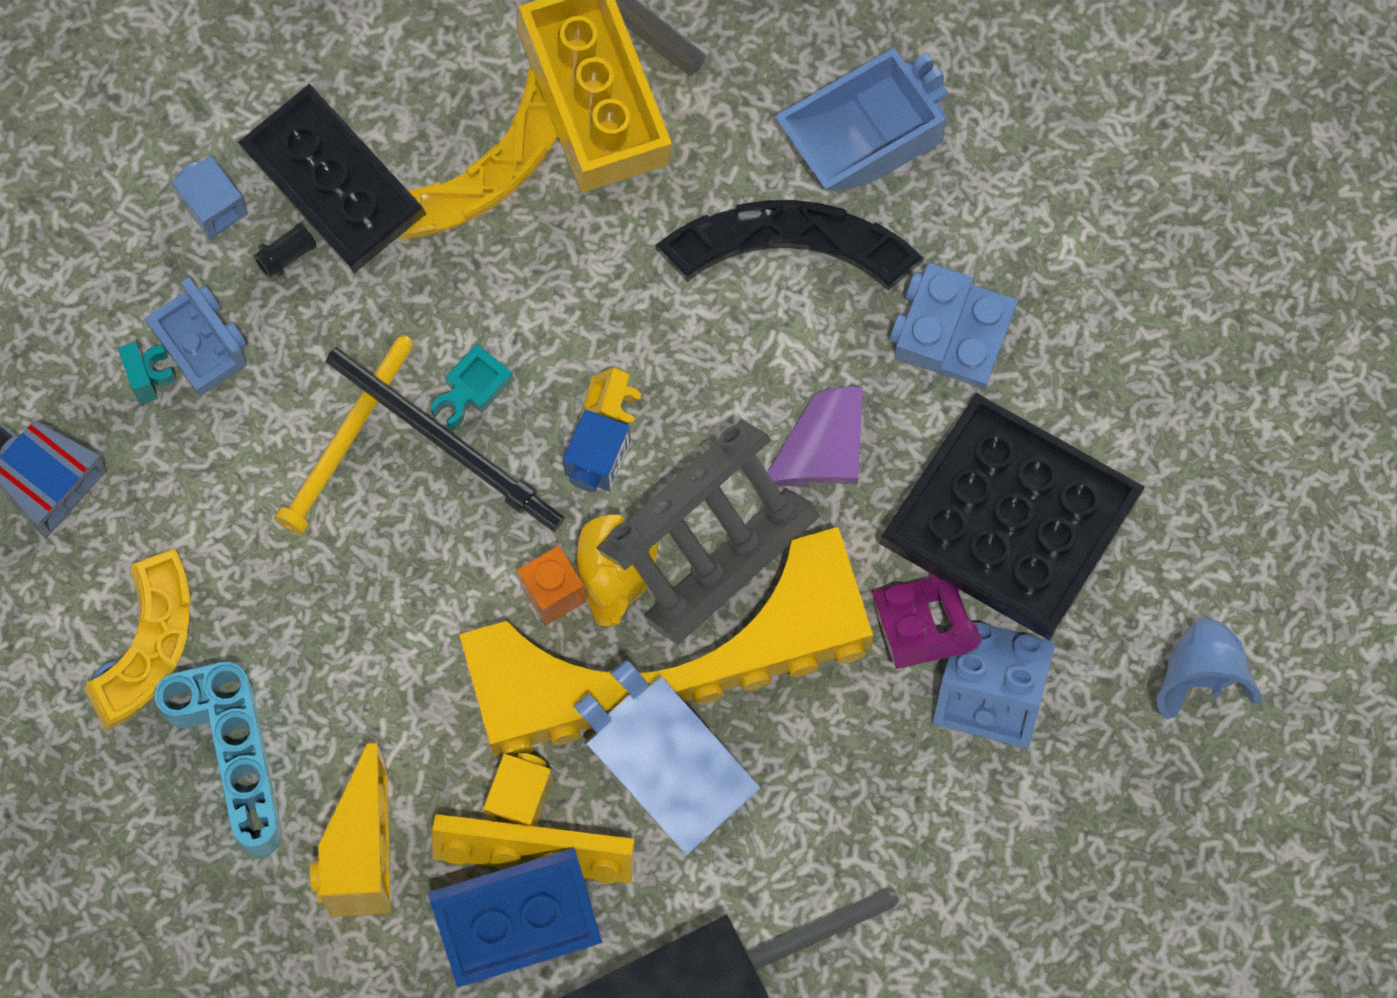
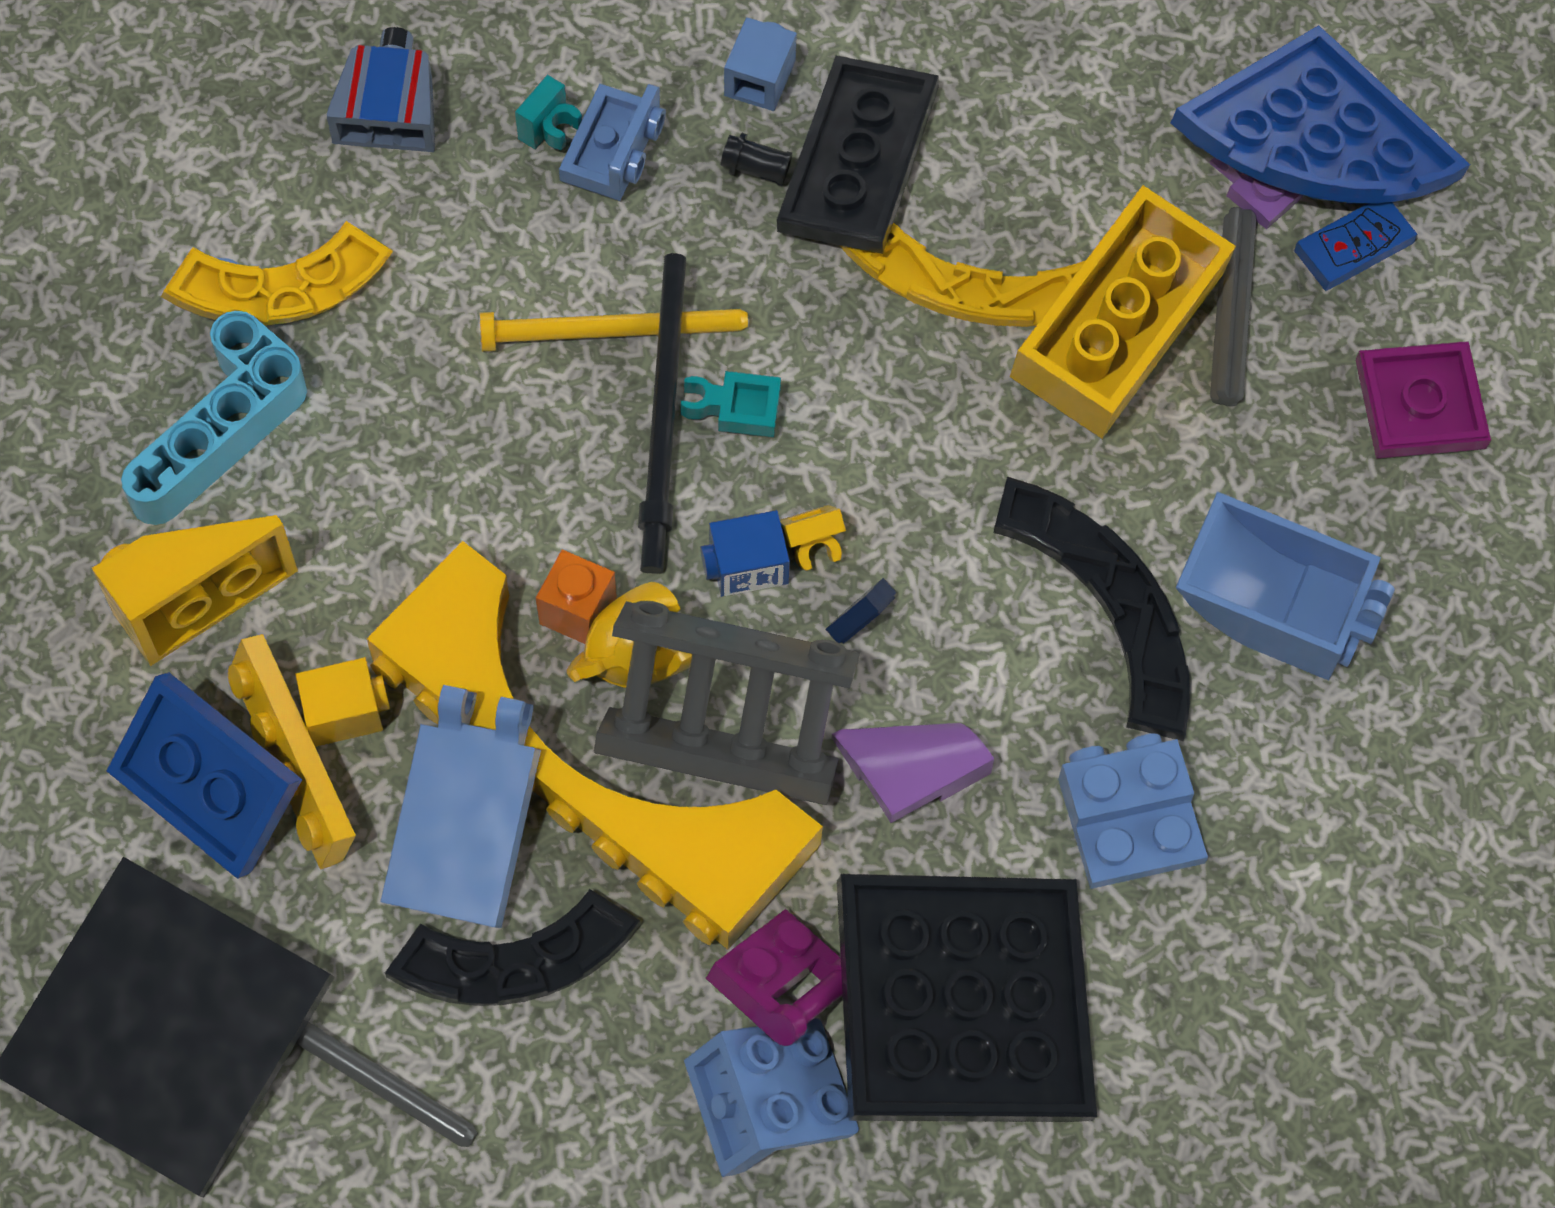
camera: 50 degrees right, 5 degrees down
(690, 404) = (861, 612): none -> dark blue tile
(794, 795) = (516, 970): none -> black tile

